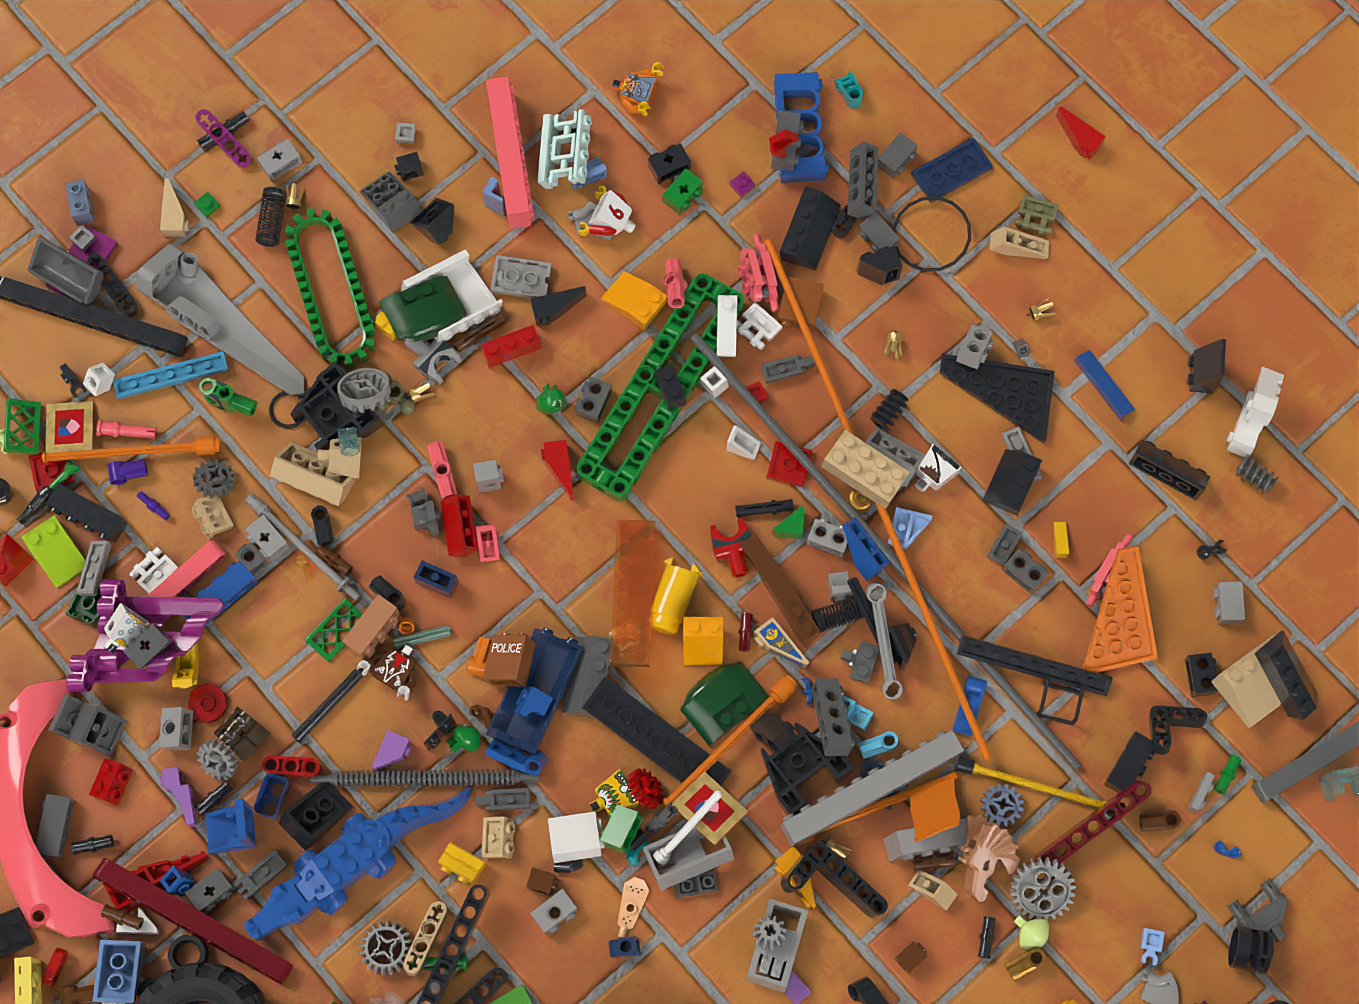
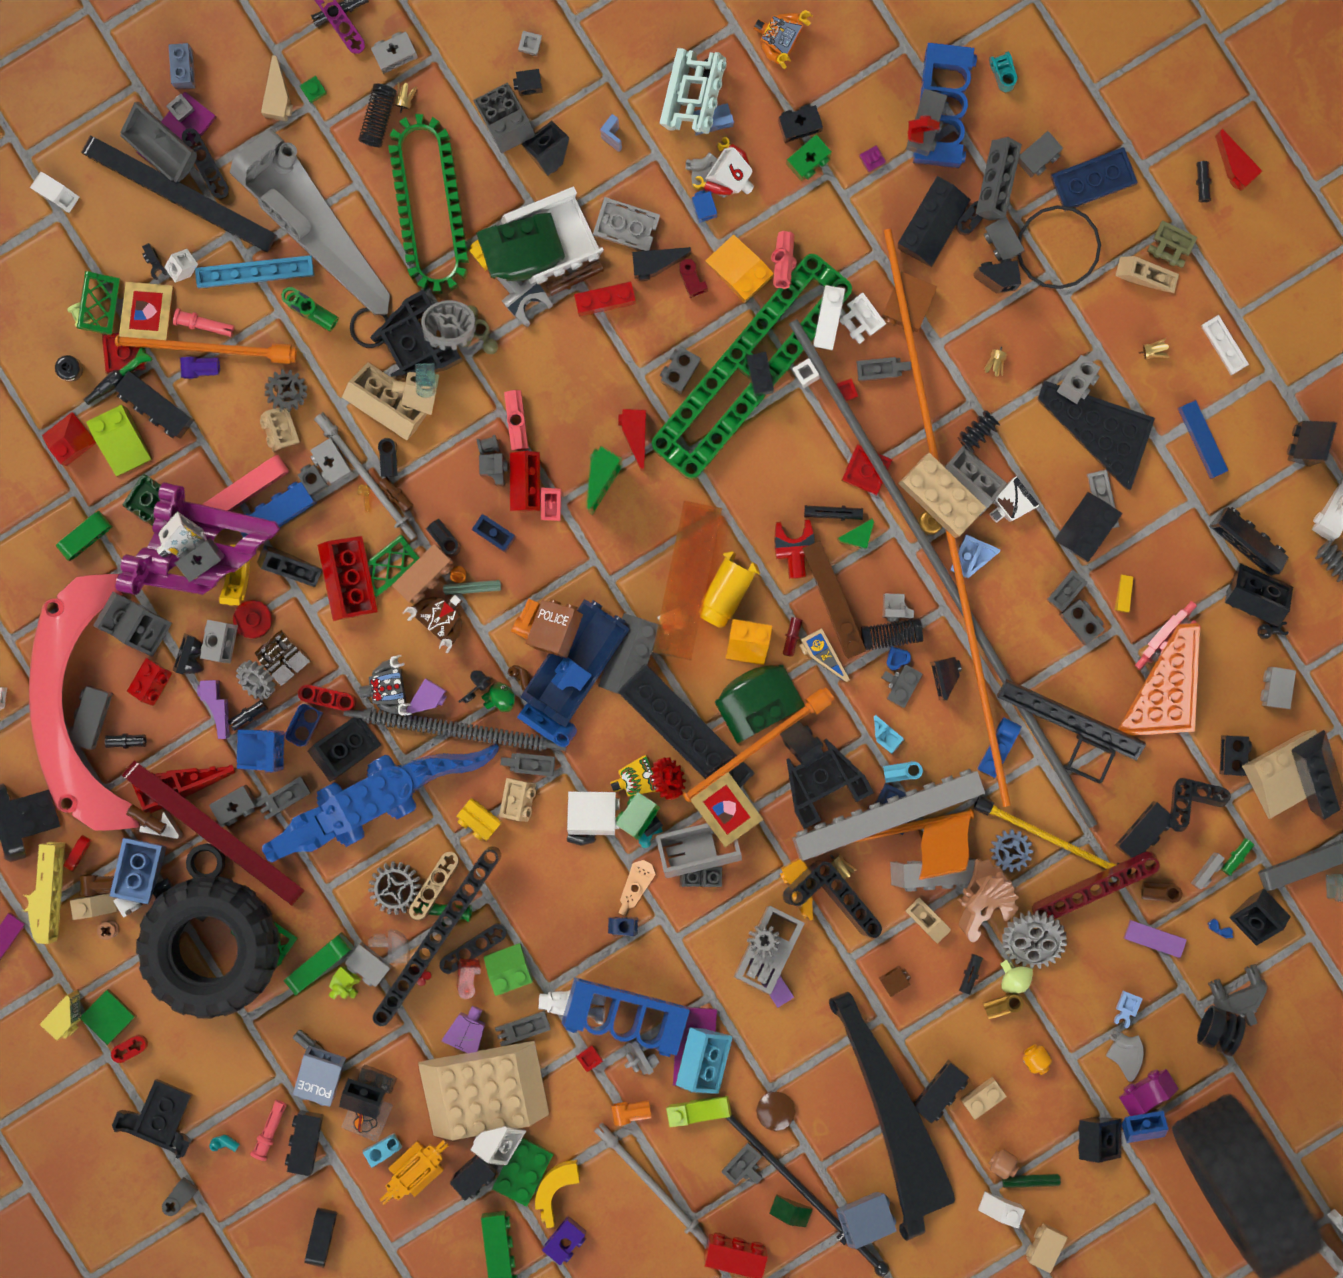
camera: 10 degrees right, 15 degrees up
(29, 649) = (83, 536): none -> green beam
(93, 568) = (155, 464): light grey tile -> none
(143, 756) = (183, 662): none -> black tile
(153, 505) = (221, 407): dark purple bar -> none
(156, 574) = (218, 480): white plate -> none
(181, 884) = (208, 794): blue brick -> none
(238, 644) = (288, 566): none -> black slope
(297, 646) = (347, 578): none -> red slope
(328, 704) = (370, 640): black axle -> none
(351, 746) = (387, 687): none -> torso
(415, 392) = (501, 332): pearl gold piece -> none
(488, 476) = (561, 435): light grey brick -> none
(510, 152) = (634, 81): coral brick -> none
(535, 502) = (602, 473): none -> green slope
(542, 881) = (554, 850): reddish brown brick -> none
(542, 913) = (569, 872): light grey brick -> none
(550, 400) = (637, 364): green piece -> none
(590, 317) = (690, 278): none -> dark red leg
(591, 249) = (704, 206): none -> blue brick
(661, 819) = (678, 810): dark grey pin -> none
(663, 855) = (674, 845): white piece -> none
(742, 443) = (824, 442): white slope -> none
(758, 274) = (871, 263): coral piece -> none
(807, 691) = (843, 705): blue piece -> none
(827, 542) = (890, 559): light grey brick -> none
(832, 717) = (857, 767): dark grey brick -> none
(852, 636) = (897, 657): none -> blue tile
(864, 551) = (925, 575): blue slope -> none
(865, 607) = (919, 649): black axle -> none
(883, 641) = (927, 672): light grey piece -> none
(933, 862) = (934, 895): reddish brown pin -> none
(1021, 347) = (1126, 385): dark grey piece -> none
(1054, 156) = (1203, 181): none -> black pin
(1106, 296) = (1224, 345): none -> white tile
(1164, 870) = (1155, 938): none -> medium lavender tile
(1191, 518) = (1259, 595): none -> black slope
(1263, 830) = (1260, 917): none -> black slope

